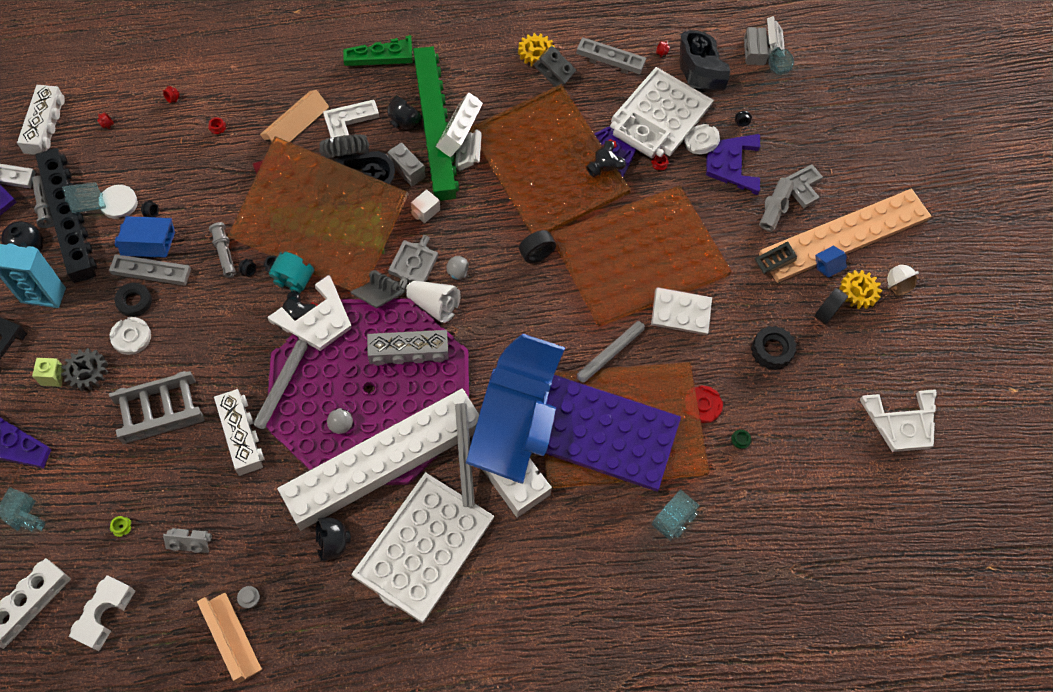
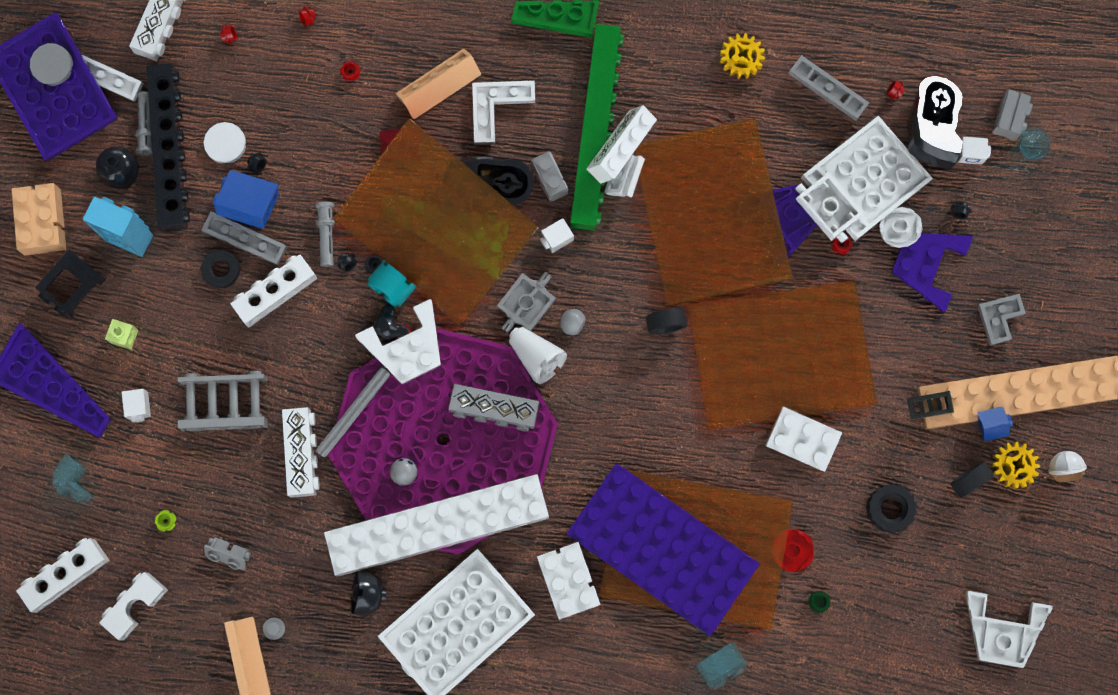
camera: 20 degrees right, 15 degrees up
(73, 429) = (136, 405): none -> white brick
(83, 197) = (189, 133): clear light blue piece -> none
(88, 374) = (152, 346): dark grey gear -> none
(130, 336) = (210, 310): white tile -> none
(184, 314) = (269, 302): none -> white brick
(343, 146) = (483, 145): dark grey gear -> none
(379, 290) = (478, 329): dark grey hinge -> none
(402, 114) = (561, 110): black cylinder -> none
(463, 448) = (520, 548): light grey axle -> none
(515, 410) = (583, 518): blue beam -> none
(554, 67) = (755, 89): dark grey brick -> none
(605, 160) = (774, 235): black animal -> none
(613, 349) = (710, 466): light grey axle -> none
(739, 75) = (974, 150): none -> white brick
(775, 34) = (1040, 107): white plate -> none
(776, 204) = (957, 335): light grey piece -> none

